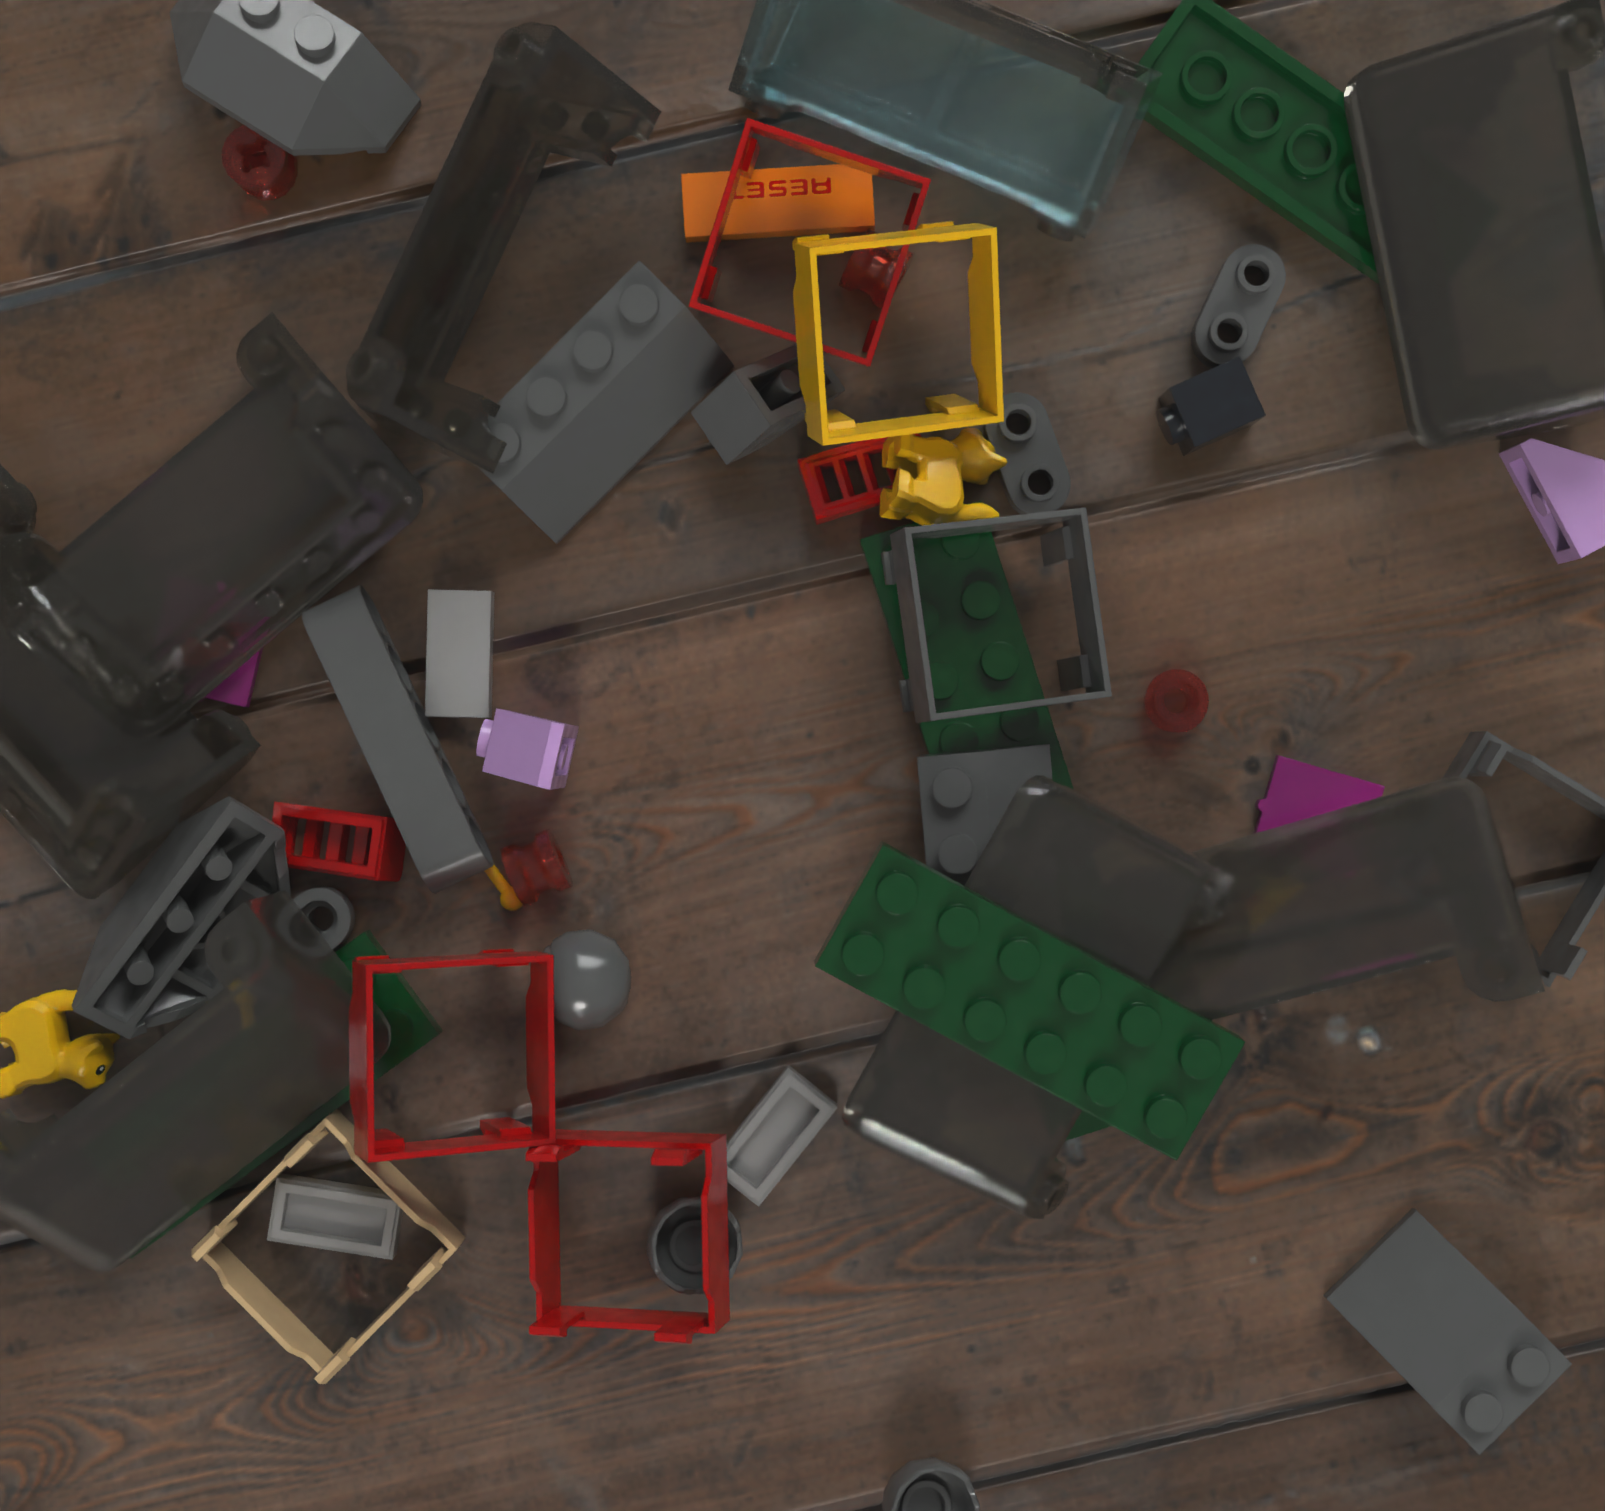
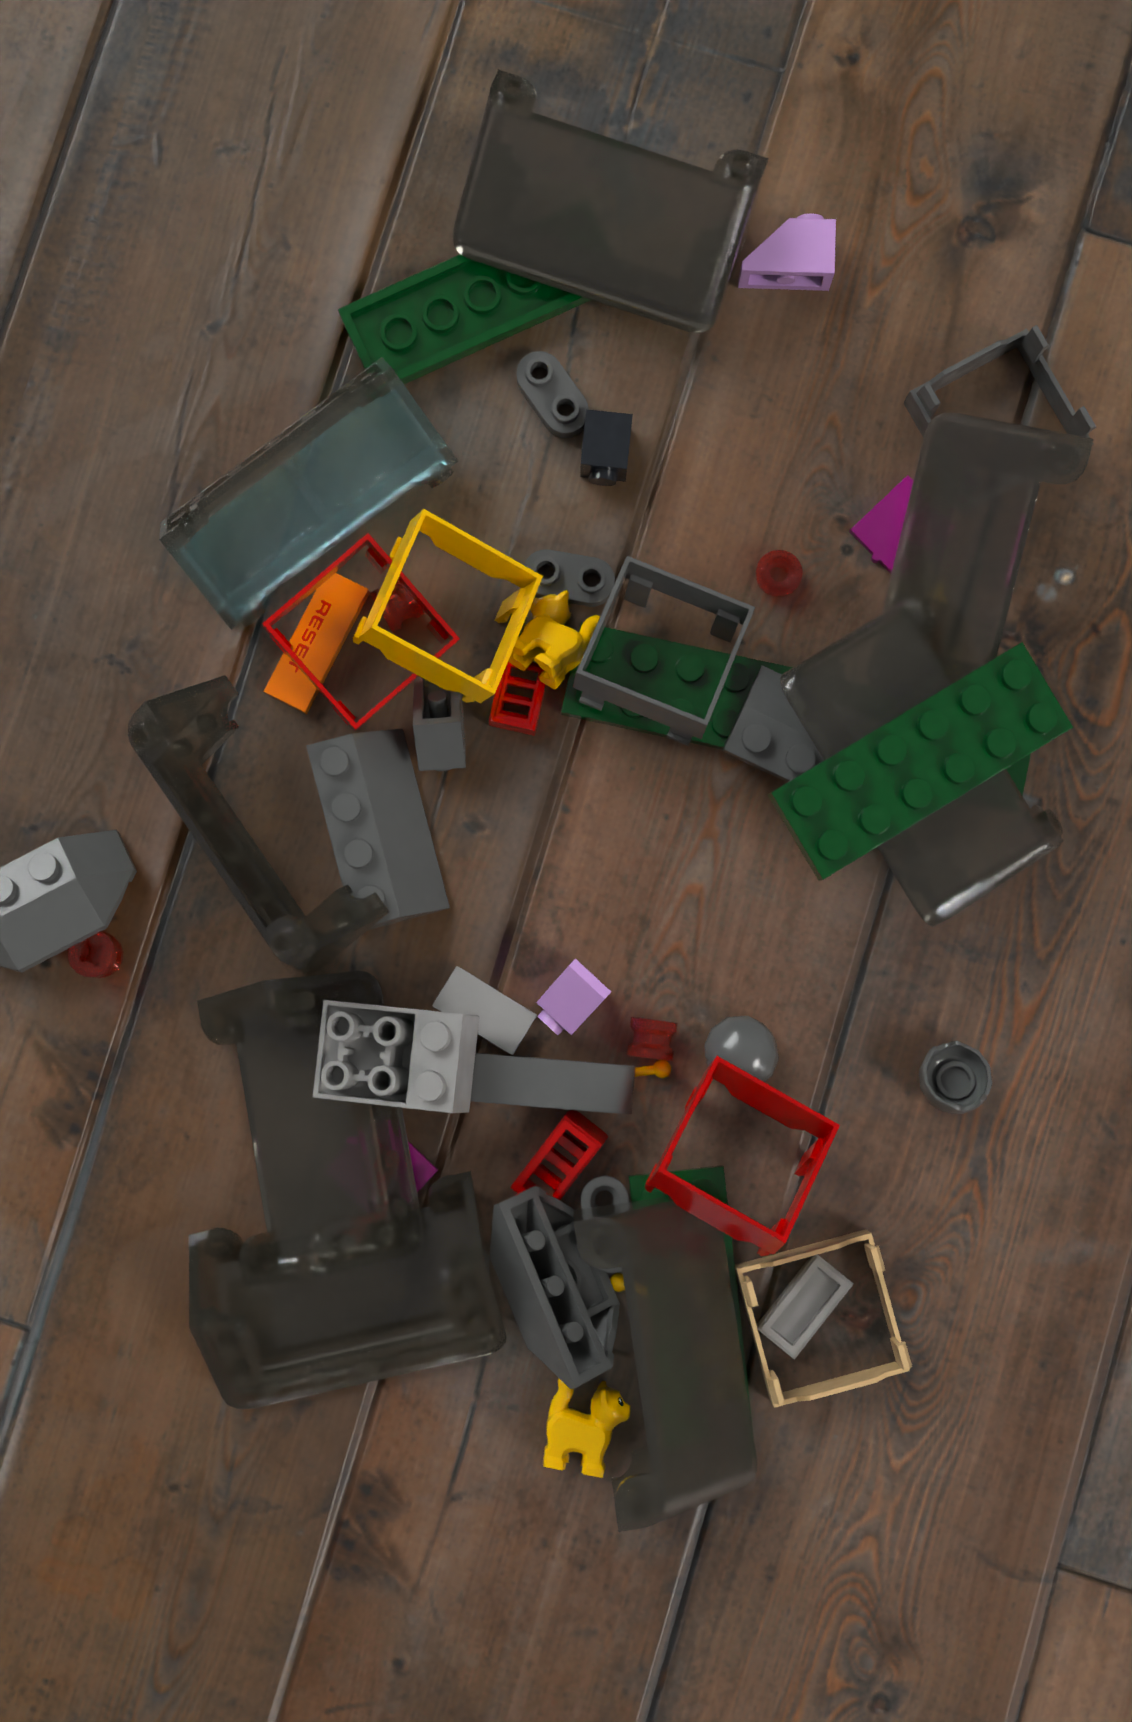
camera: 60 degrees left, 5 degrees down
(332, 583) = (396, 1057): none -> light grey slope
(544, 1236) = (886, 1051): red piece -> none
(775, 1134) = (912, 988): light grey tile -> none

